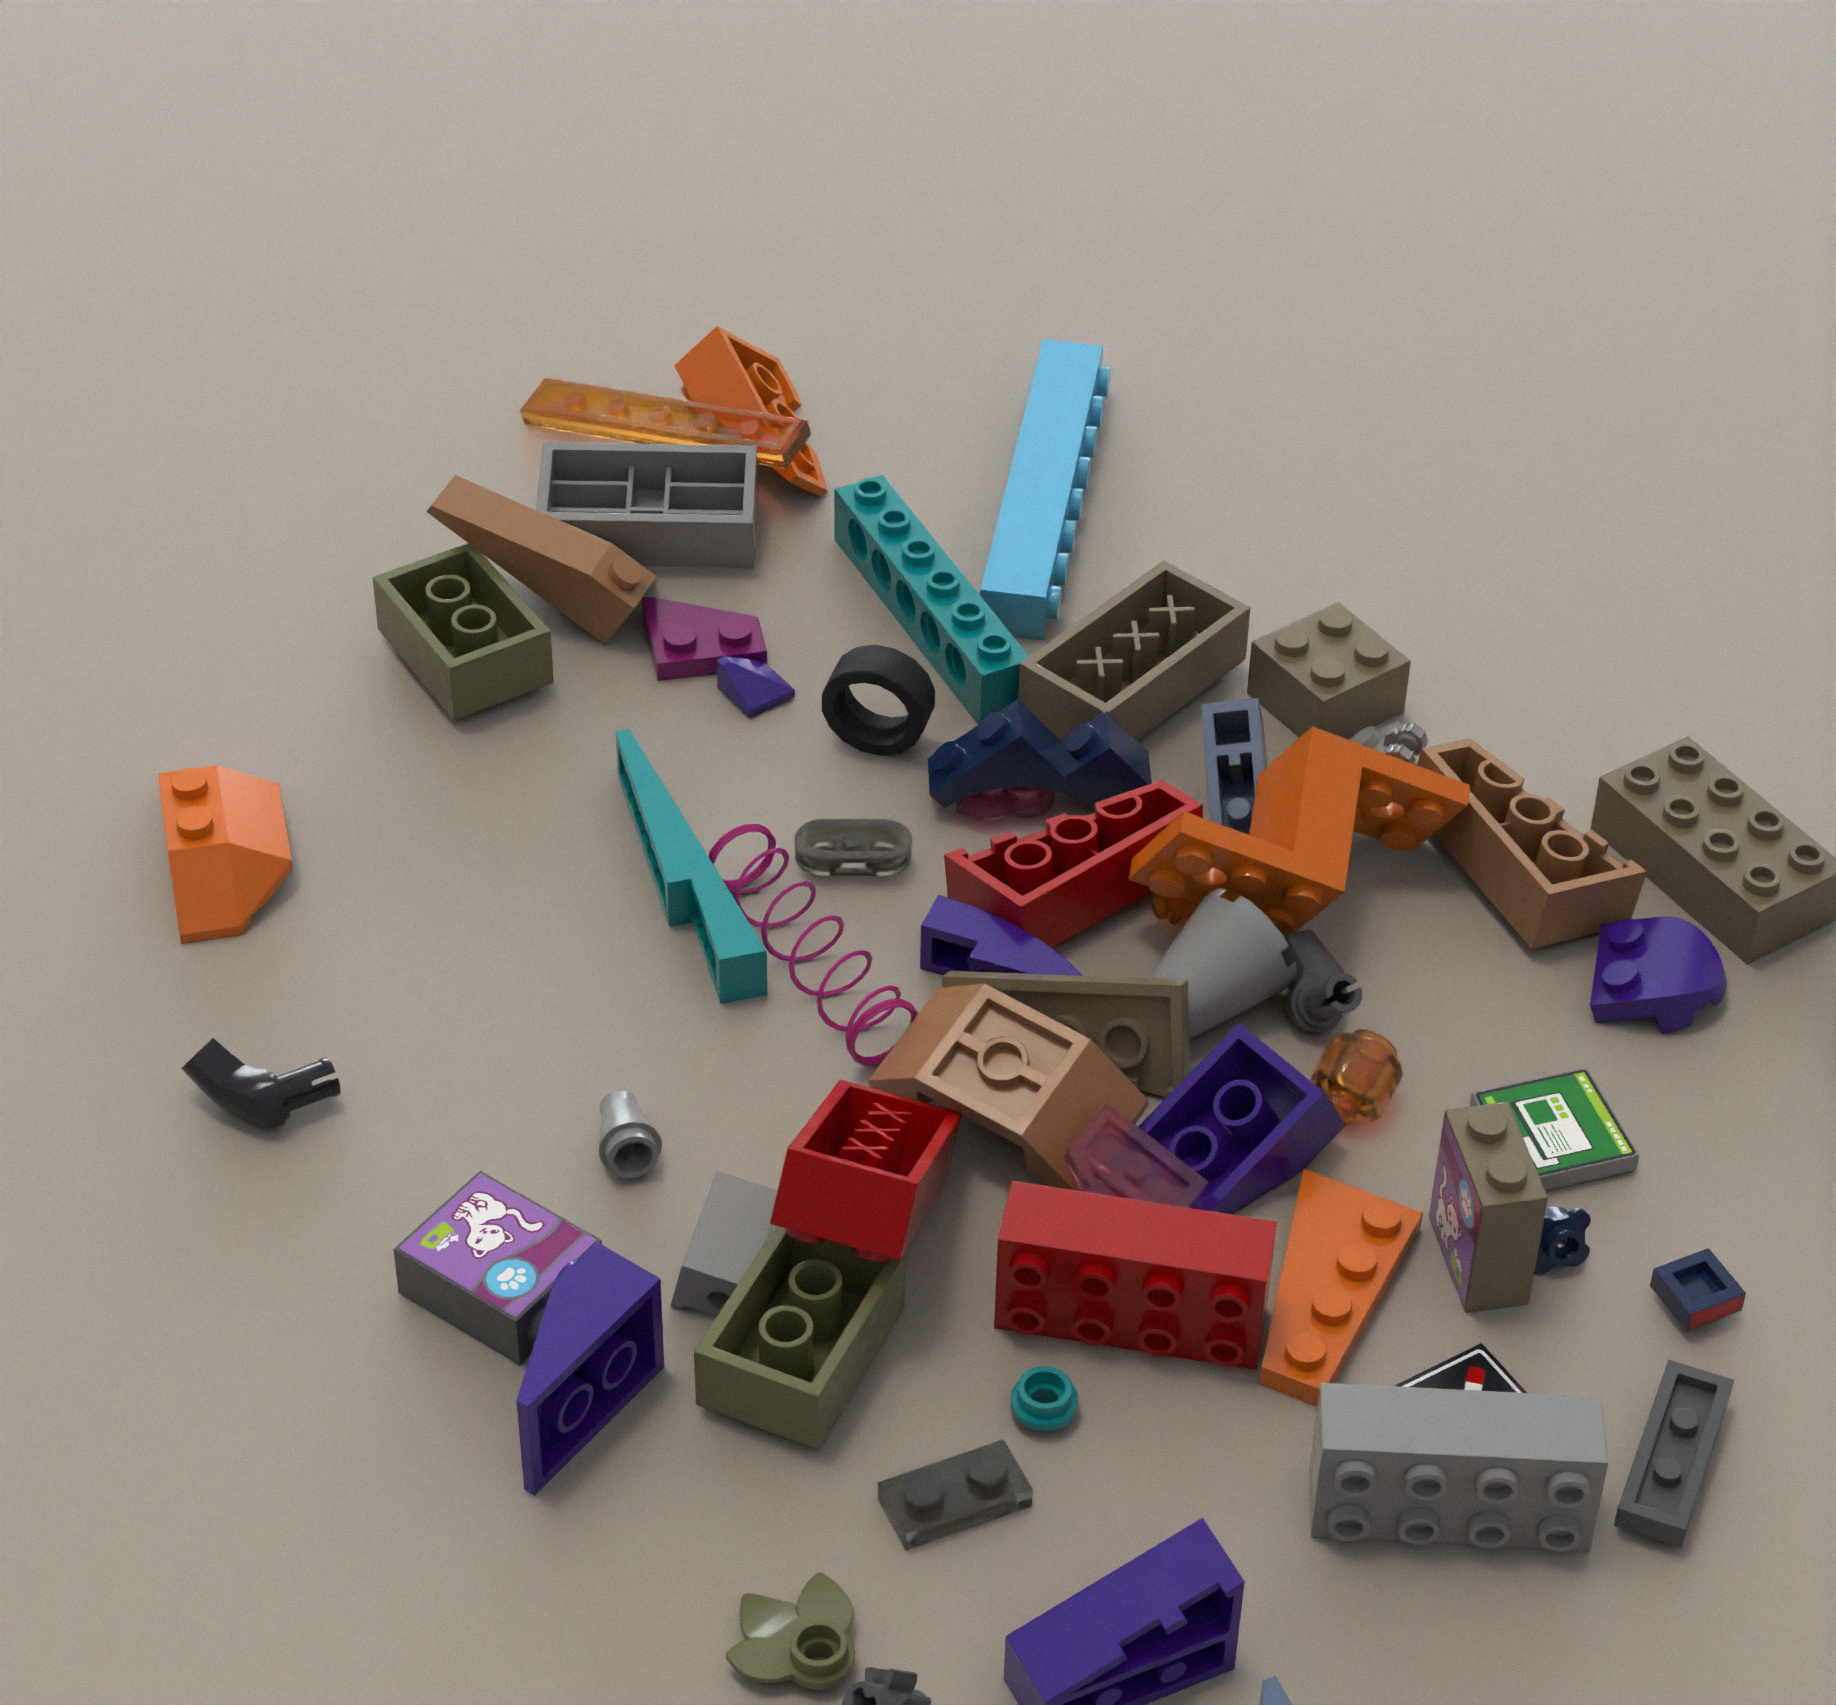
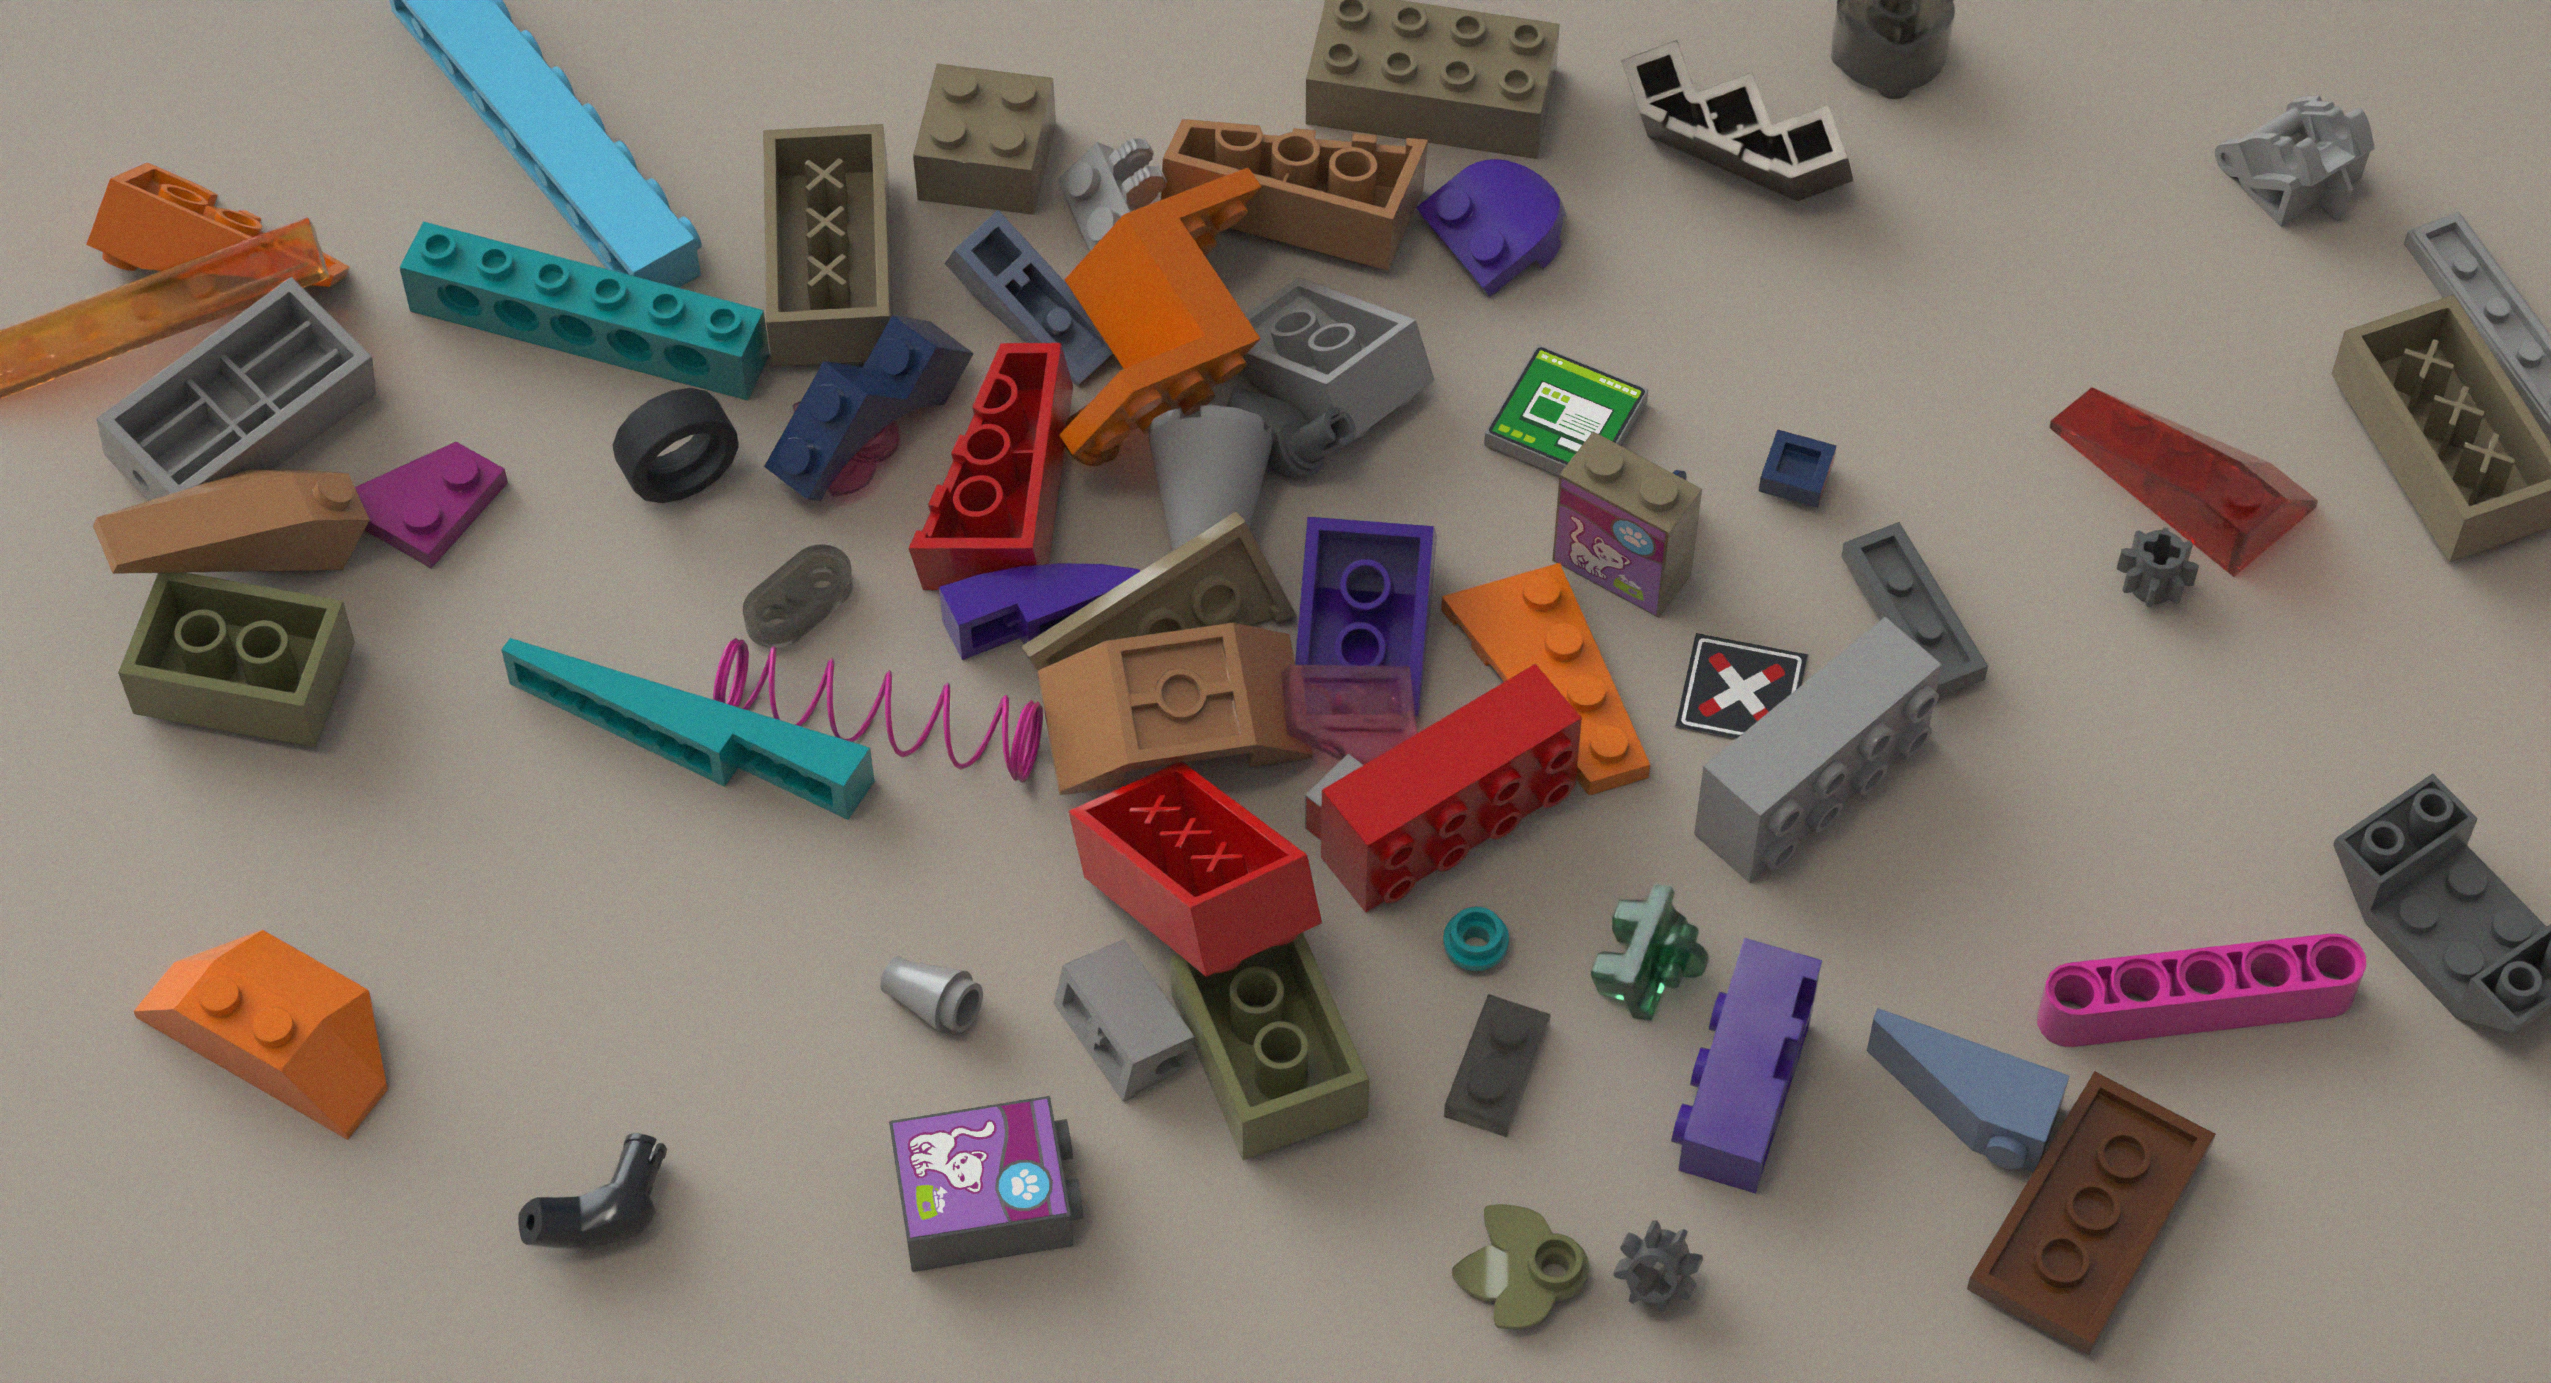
camera: 45 degrees left, 15 degrees up
(588, 1358) = (1148, 1195): dark purple slope -> none
(751, 684) = (526, 510): dark purple slope -> none
(1155, 1507) = (1658, 954): none -> clear green hips
(1359, 1075) = (1399, 484): clear orange head -> none
(1412, 968) = (1335, 352): none -> light grey slope

